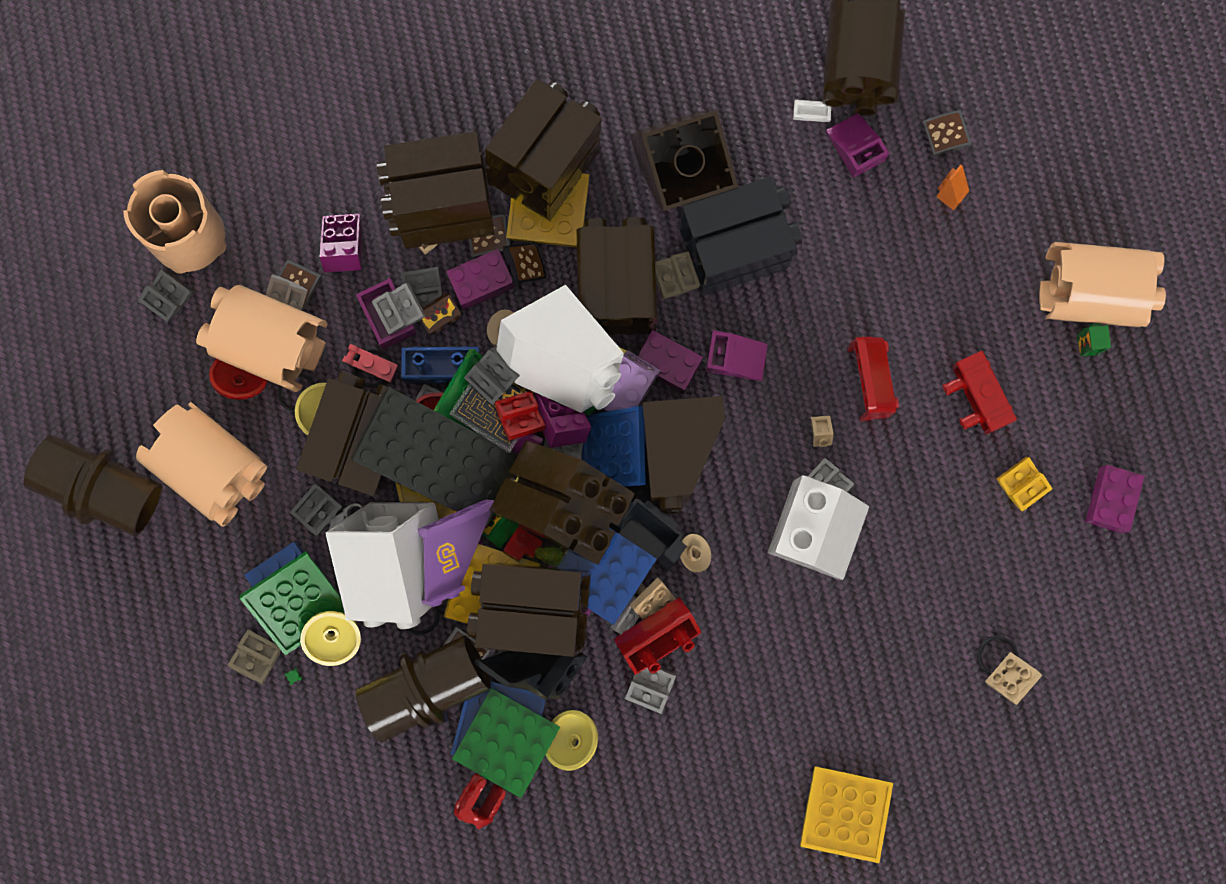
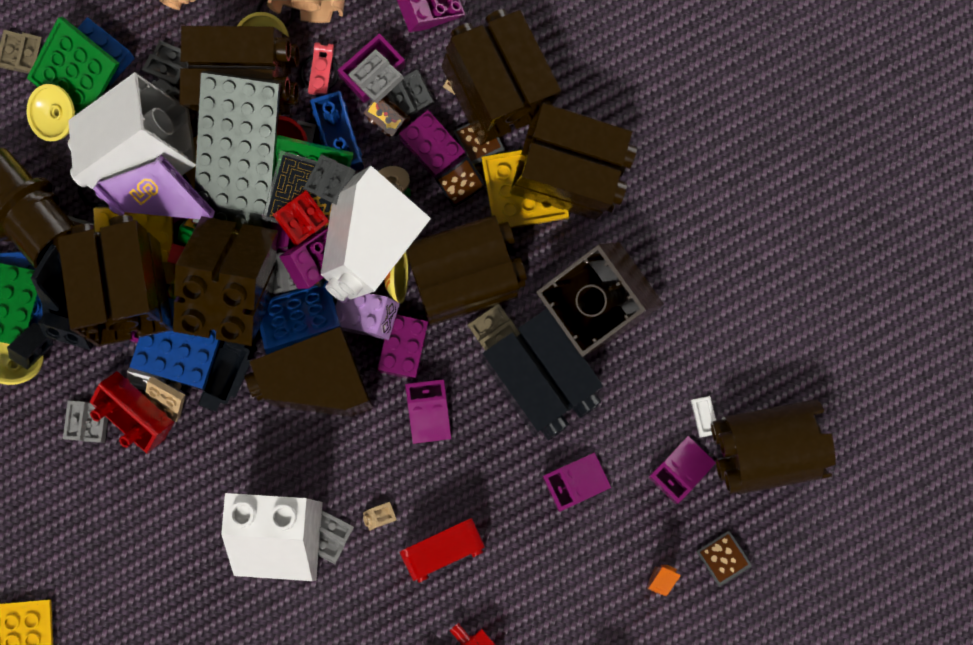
camera: 70 degrees right, 0 degrees up
(293, 676) = (10, 91): green piece -> none
(562, 719) = (29, 346): none -> black panel
(697, 554) = (223, 433): tan dish -> none
(842, 242) = (576, 482): none -> magenta slope

